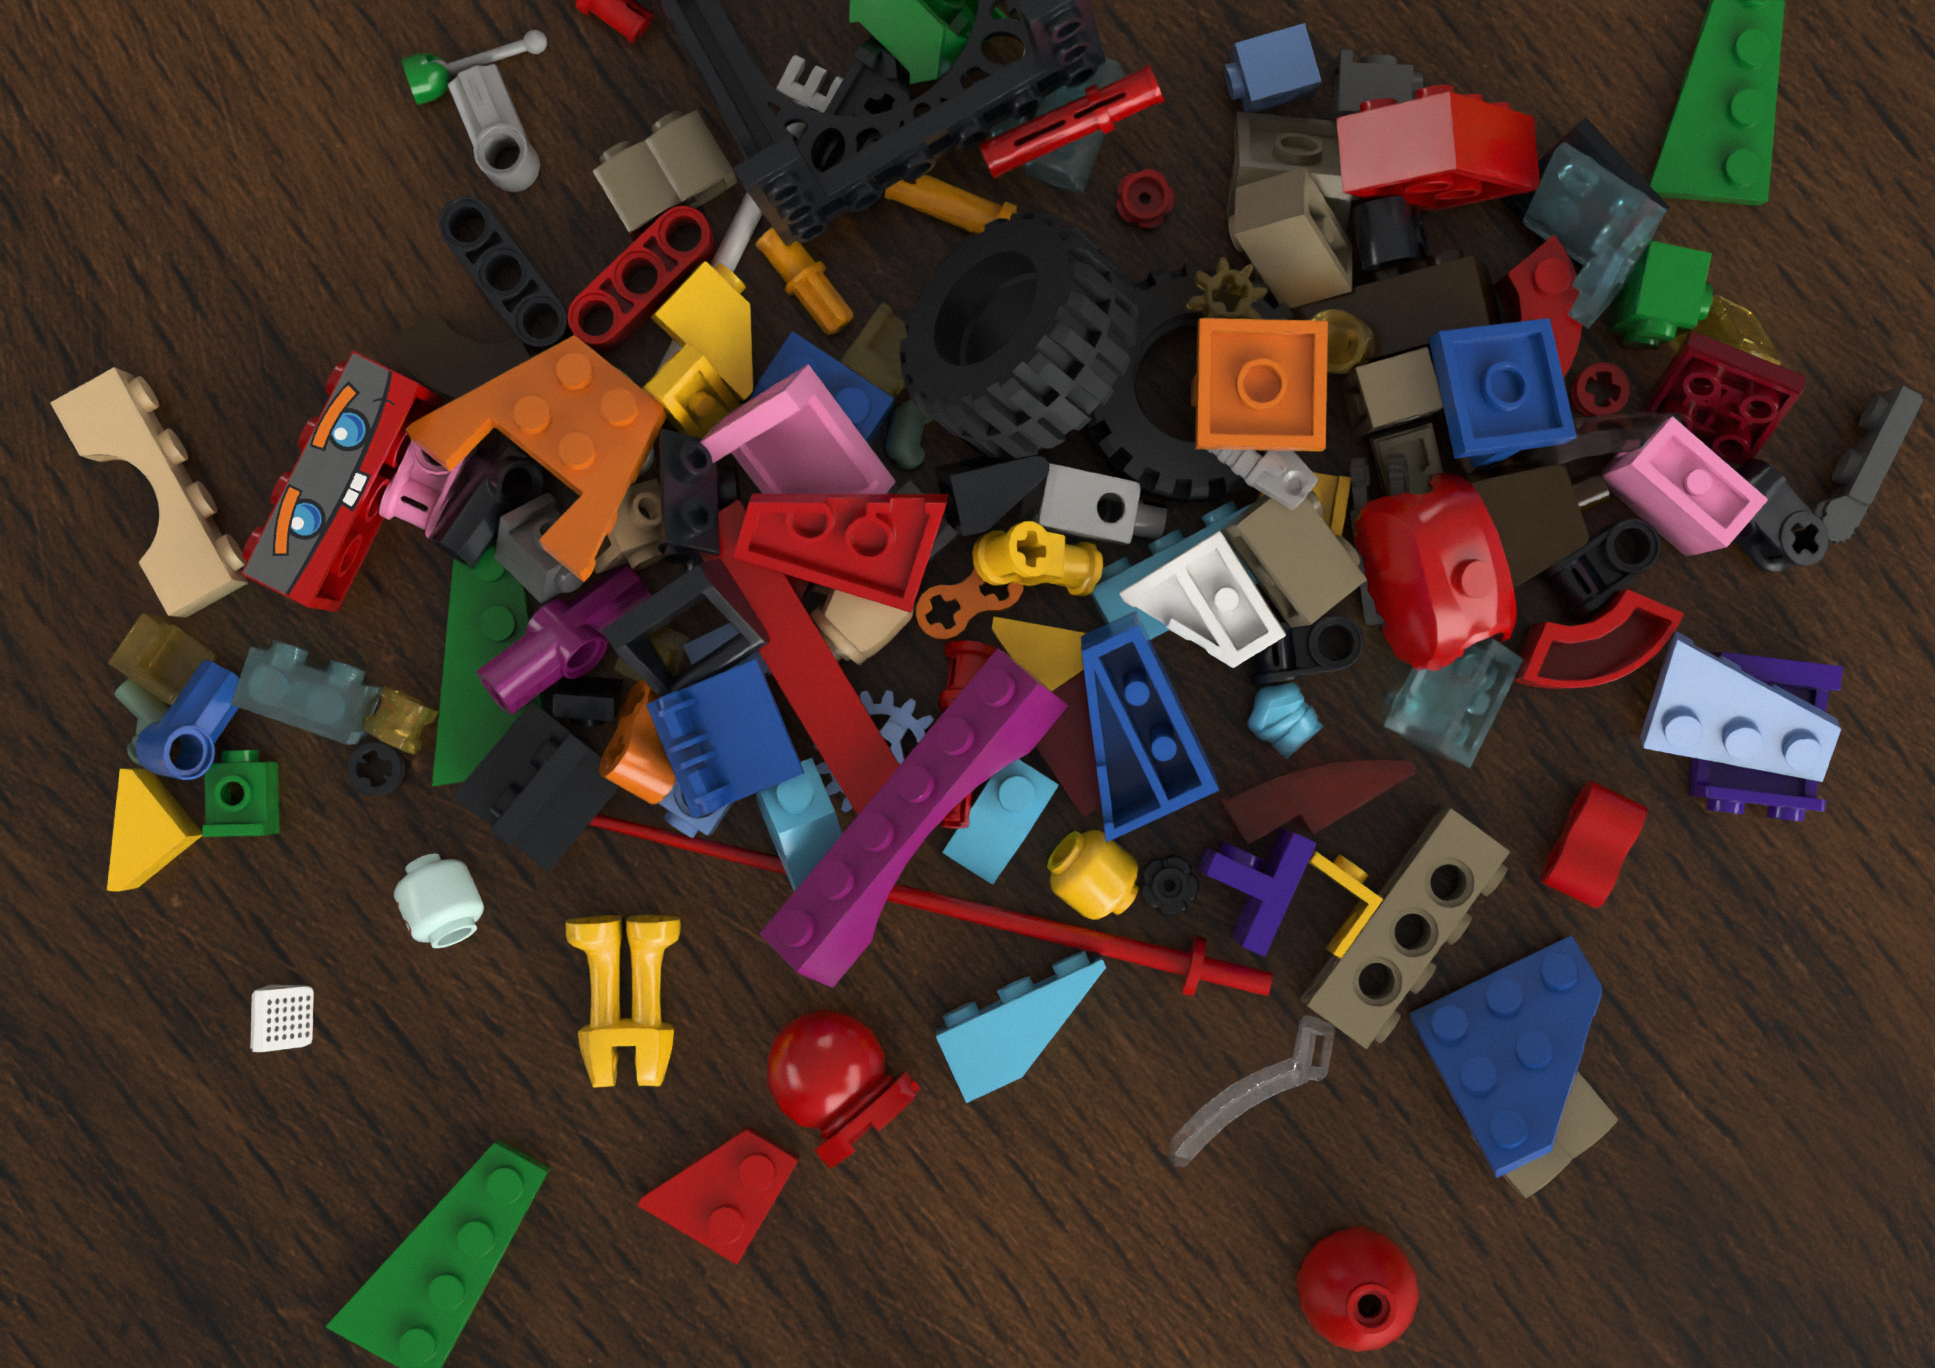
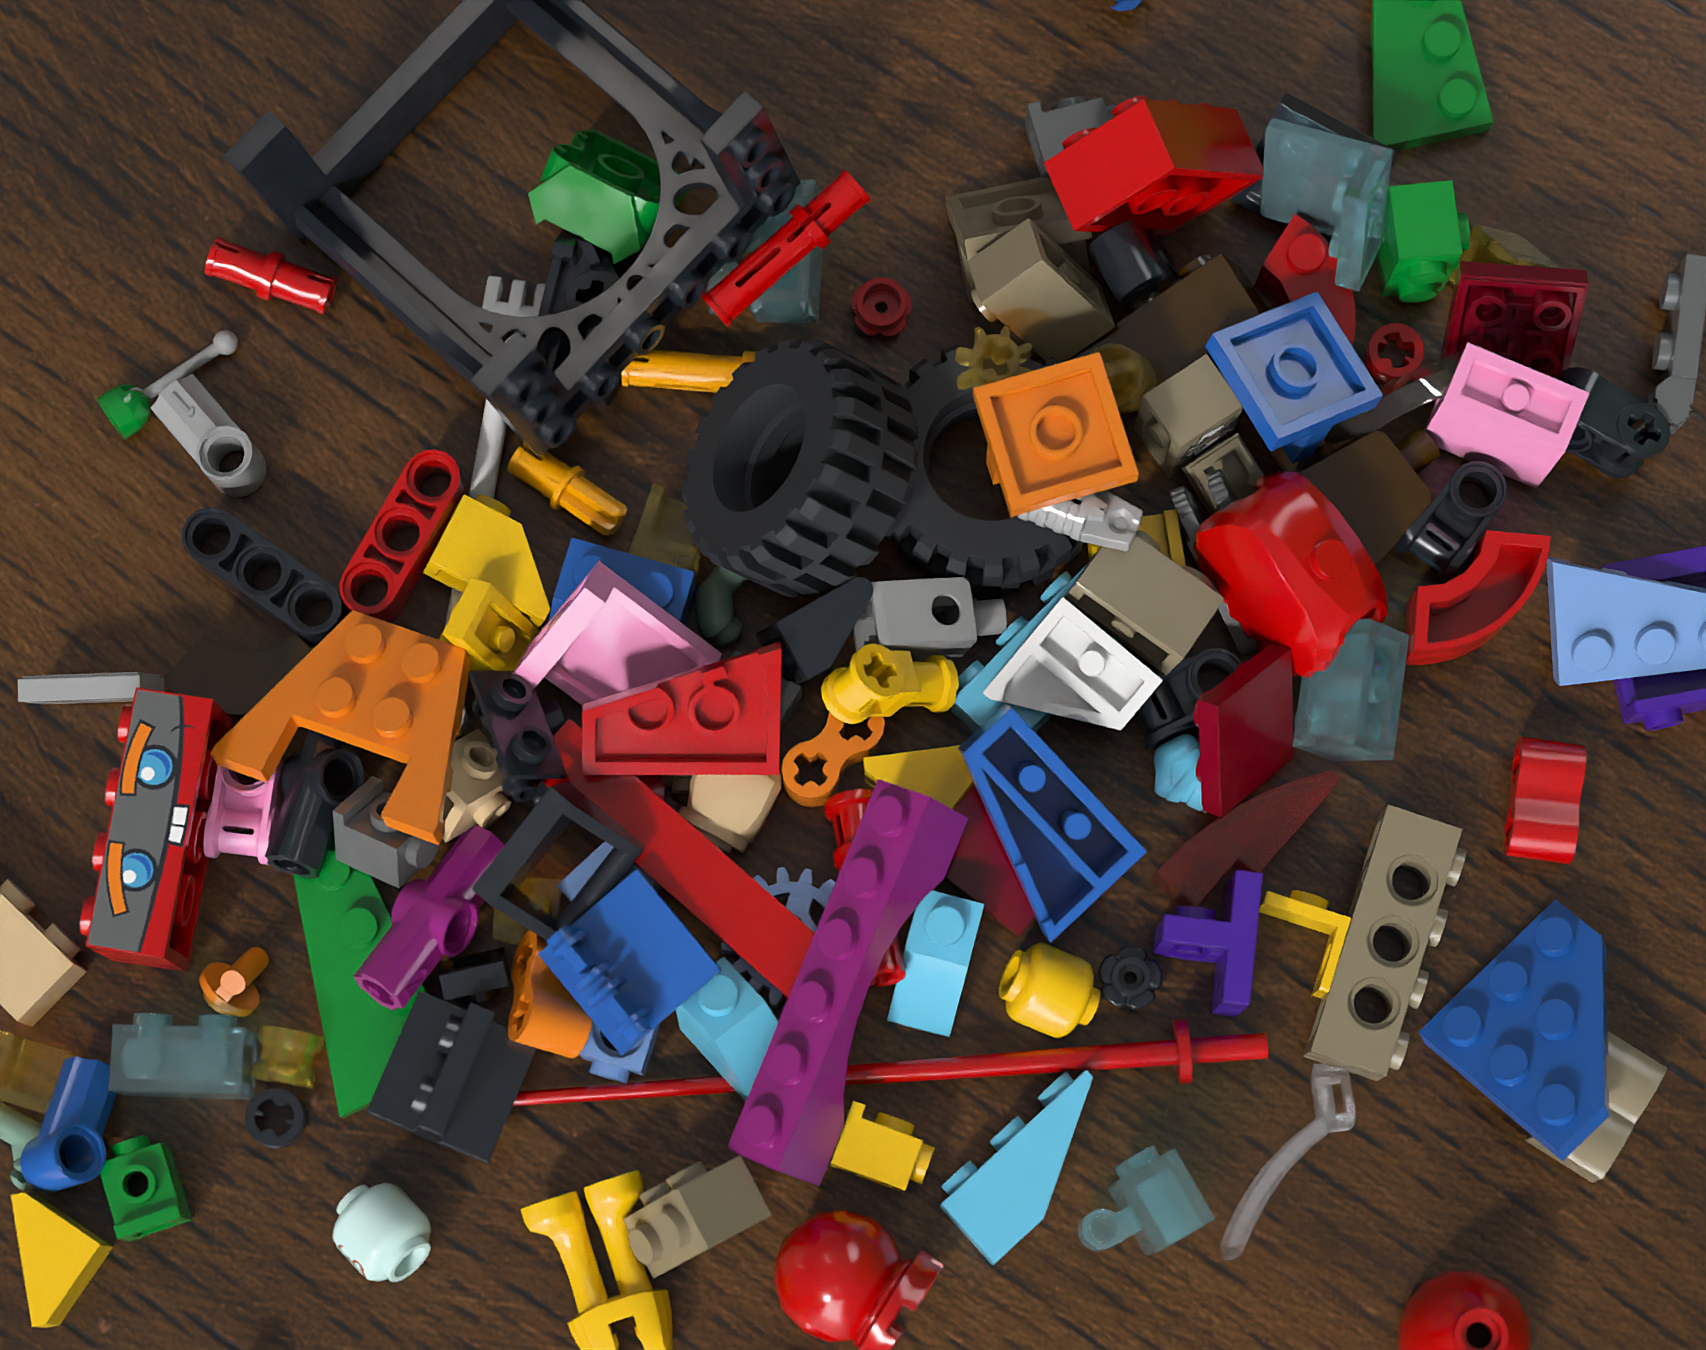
camera: 20 degrees left, 10 degrees down
(318, 330) = (85, 687): none -> light grey tile
(370, 640) = (231, 988): none -> orange plate
(665, 171) = (398, 420): dark tan brick -> none
(714, 979) = (694, 1214): none -> dark tan brick
(899, 969) = (881, 1150): none -> yellow brick
(1123, 1097) = (1154, 1202): none -> clear light blue brick
(1272, 69) = (966, 145): medium blue brick -> none
(1345, 701) = (1245, 729): none -> dark red tile

